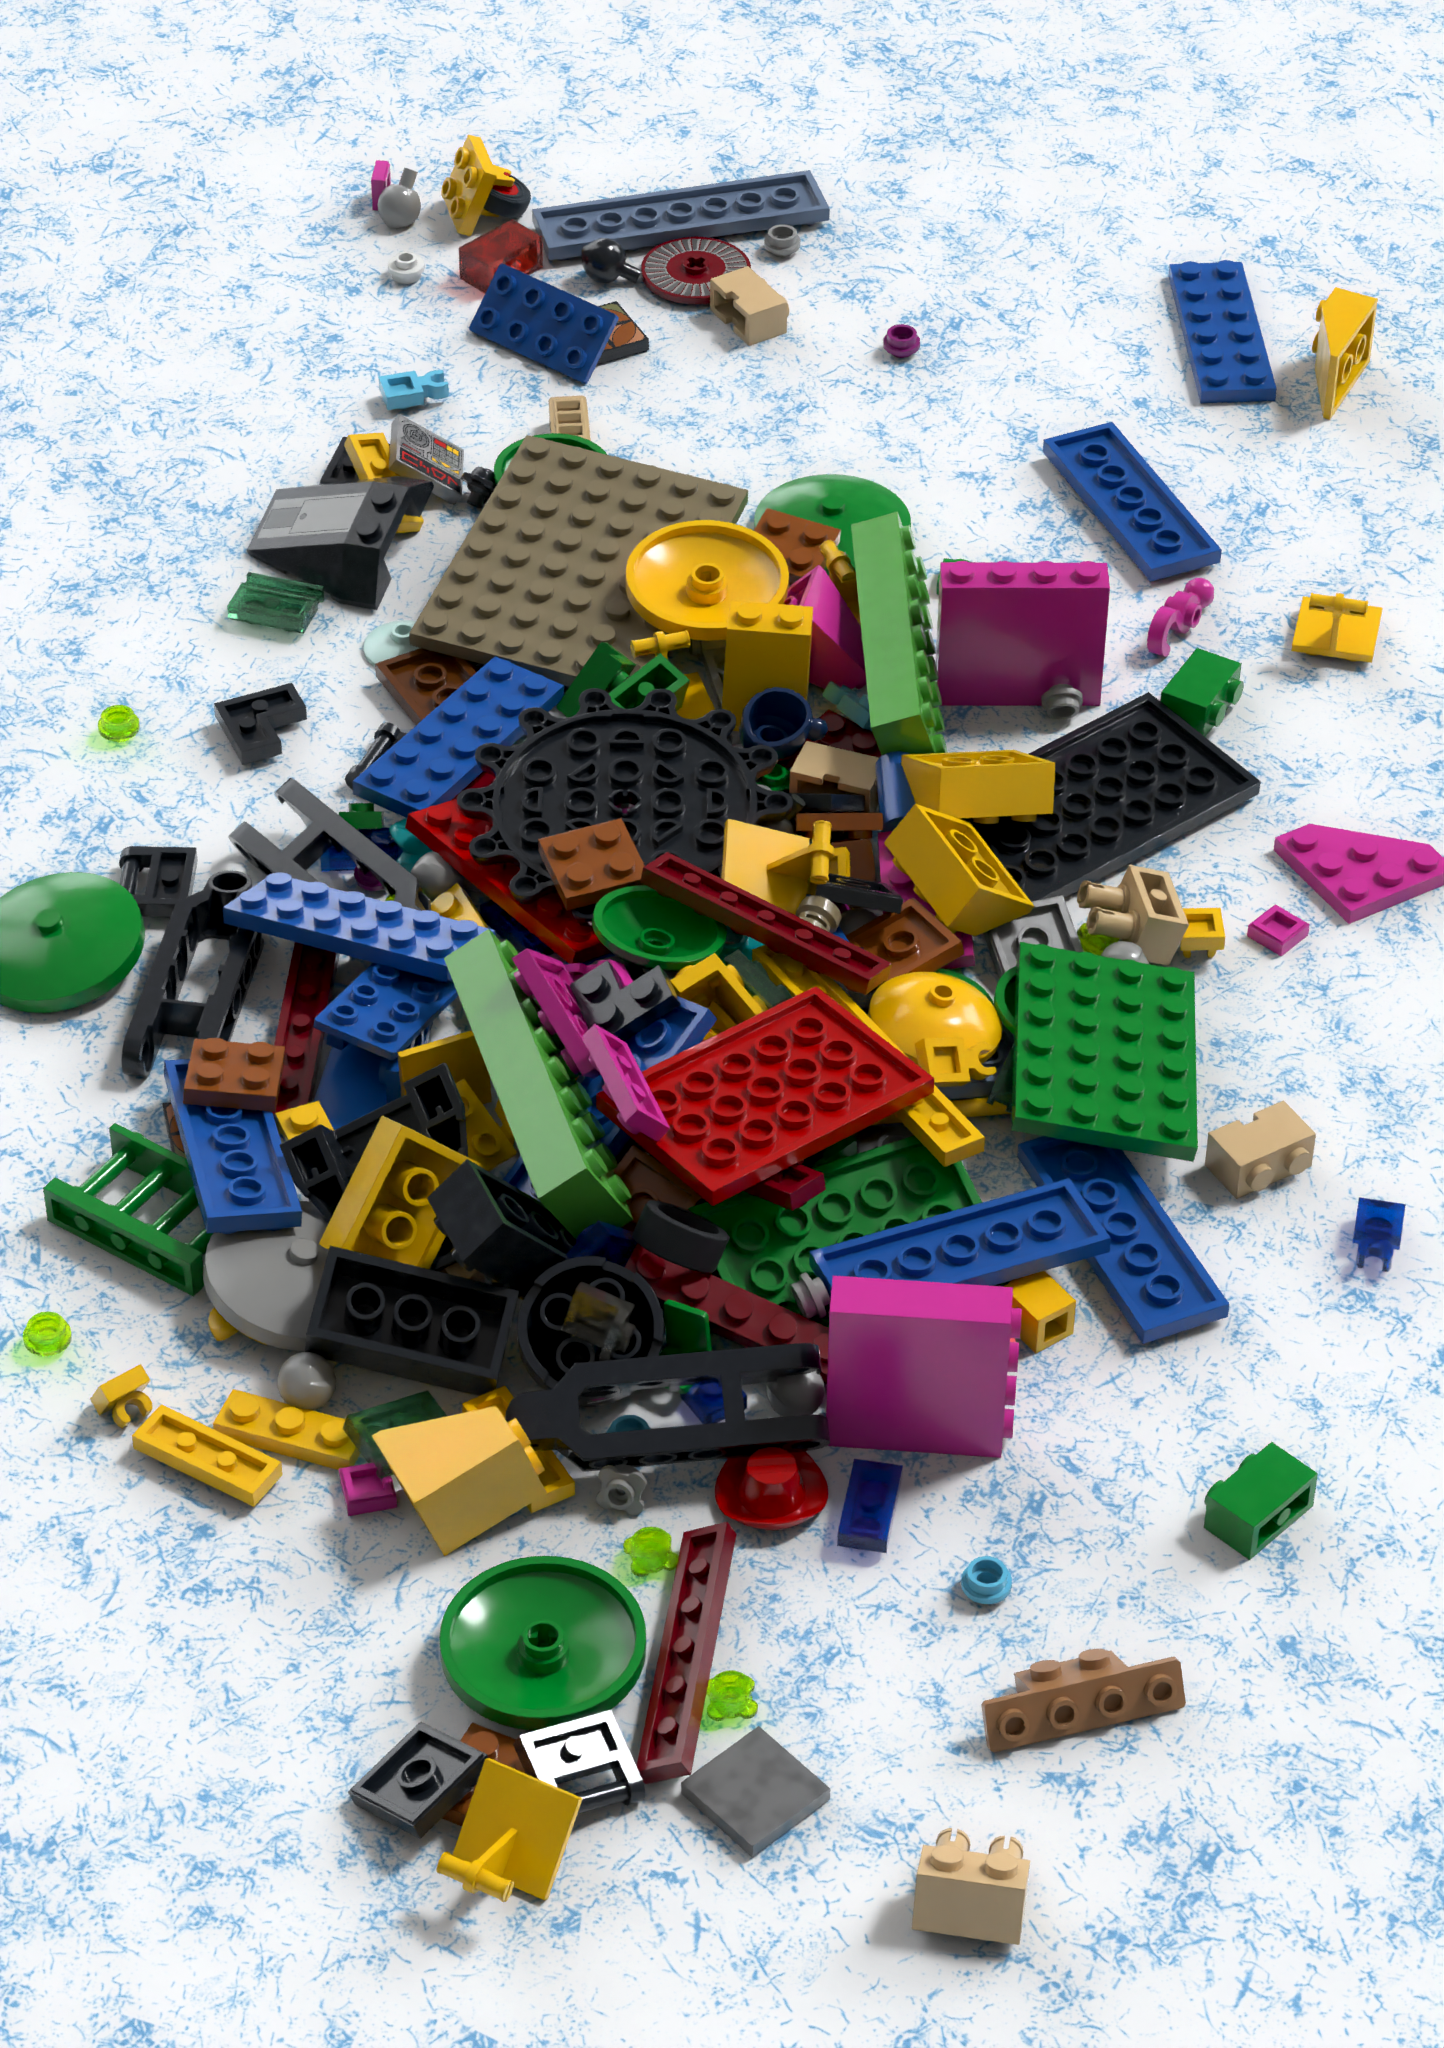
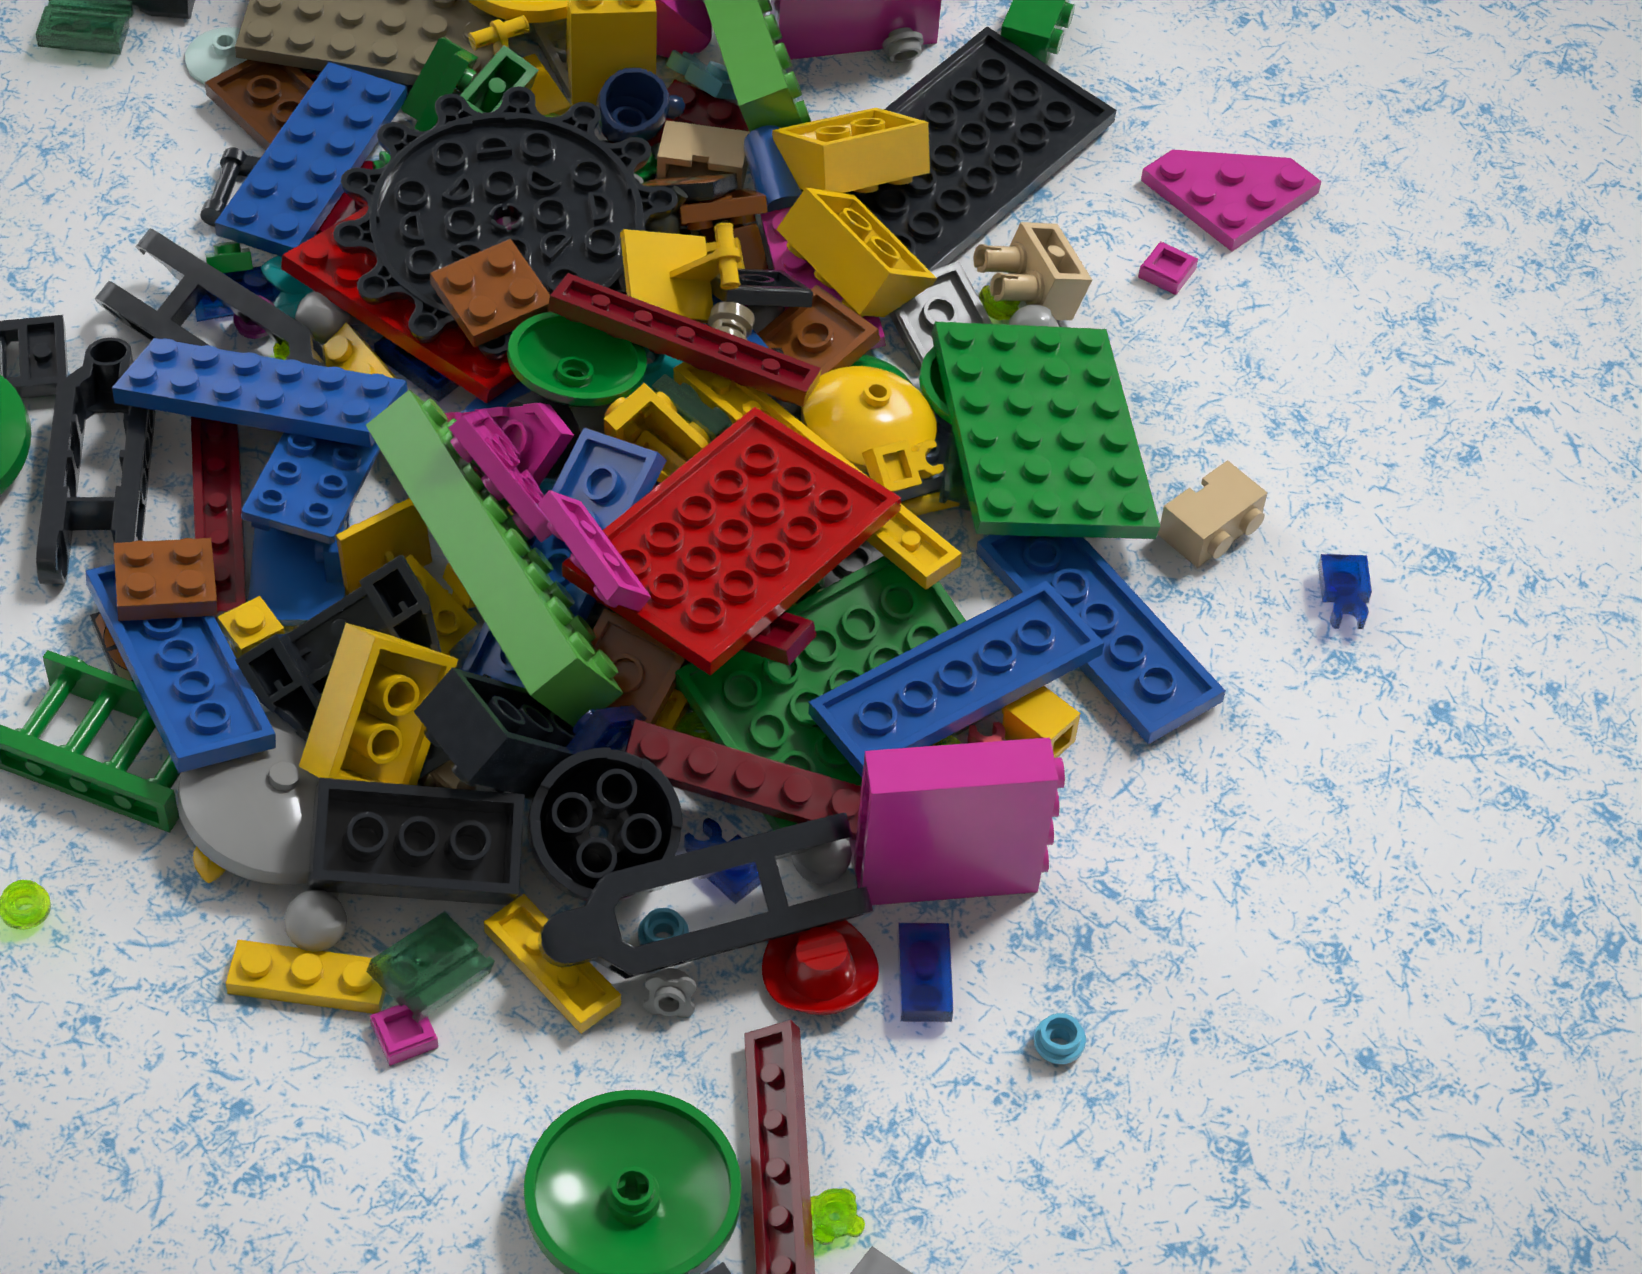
camera: 15 degrees left, 10 degrees up
(122, 1391) = (120, 963): yellow tile -> none
(207, 1455) = (227, 1022): yellow plate -> none
(252, 719) = (89, 157): black plate -> none
(463, 1472) = (508, 1010): yellow slope -> none
(600, 1320) = (620, 820): clear smoke bracket -> none
(620, 1008) = (563, 461): black plate -> none
(650, 1551) = (714, 1047): clear neon green plate -> none
(680, 1236) = (678, 708): black tyre -> none
(686, 1331) = (702, 813): green bracket -> none
(810, 1296) = (818, 750): light grey plate -> none
(1079, 1697) = (1182, 1156): medium nougat bracket -> none
(1203, 932) = (1106, 281): yellow tile -> none
(1259, 1500) = (1306, 905): green brick -> none

